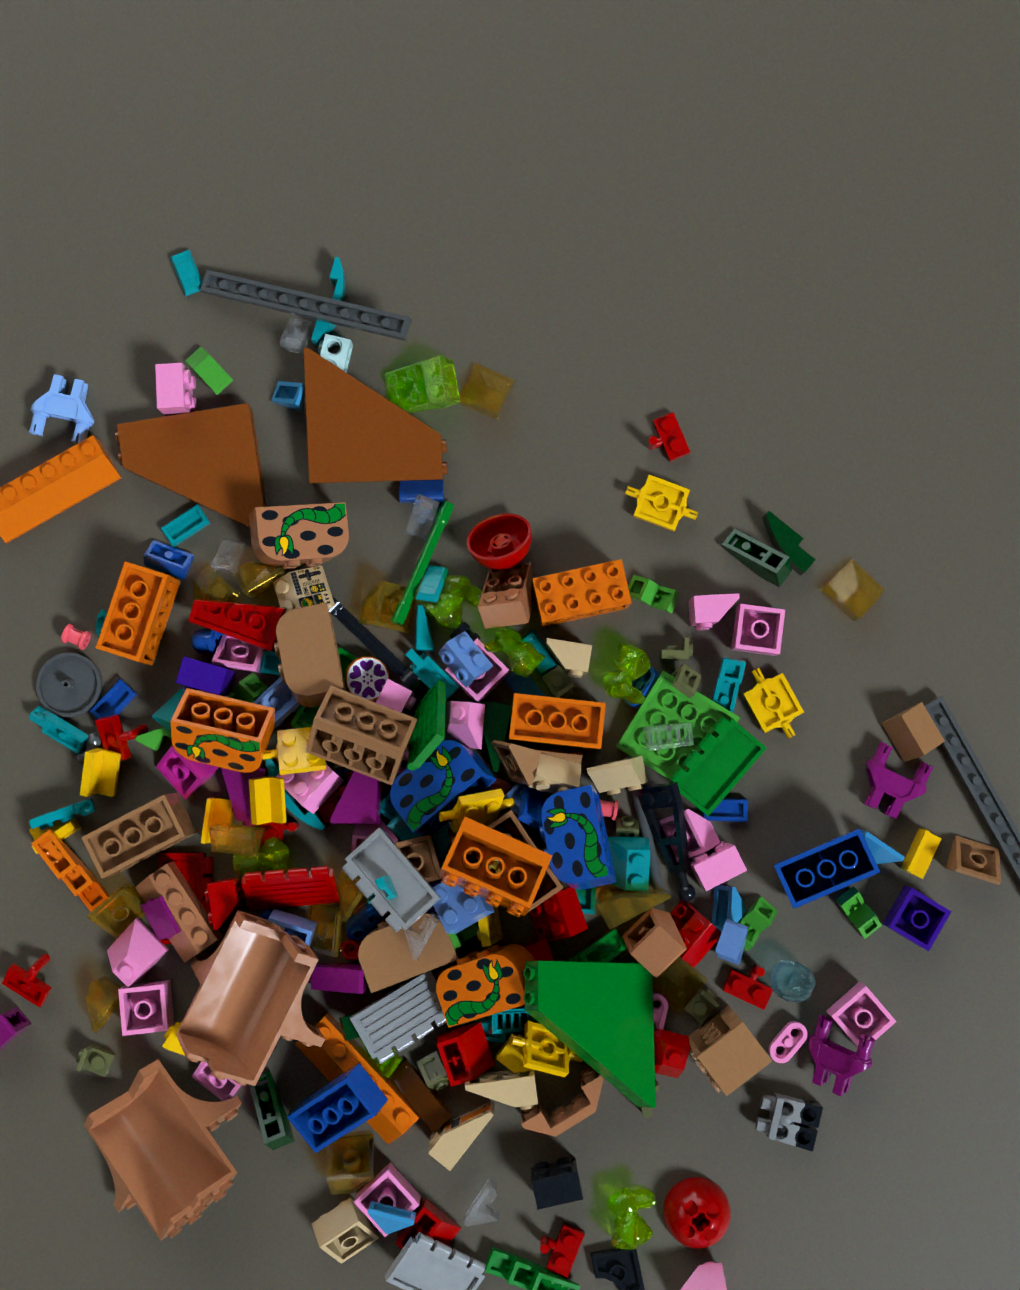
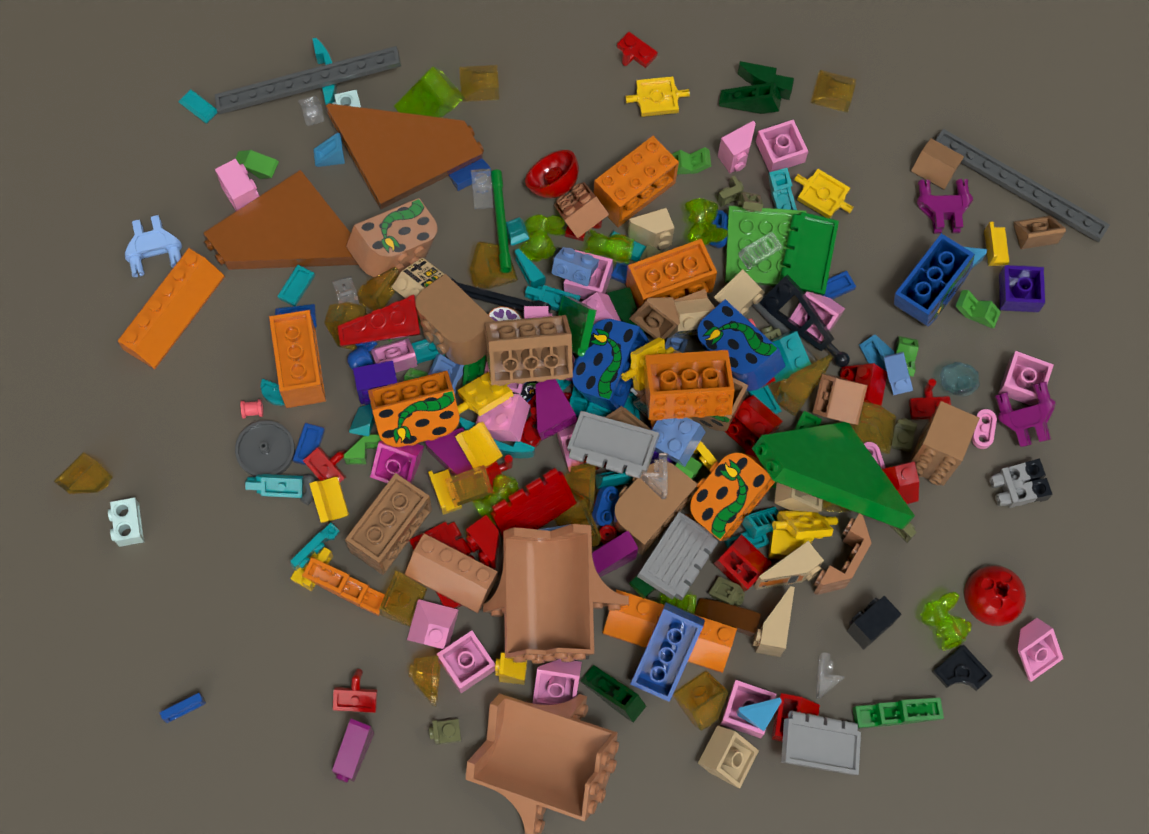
camera: 35 degrees left, 15 degrees down
(160, 918) = (440, 582): magenta piece -> none
(385, 883) = (613, 446): teal tile -> none
(531, 806) = (686, 344): blue tile -> none
(563, 1249) = (910, 678): red plate -> none
(717, 865) = (852, 323): bright pink brick -> none

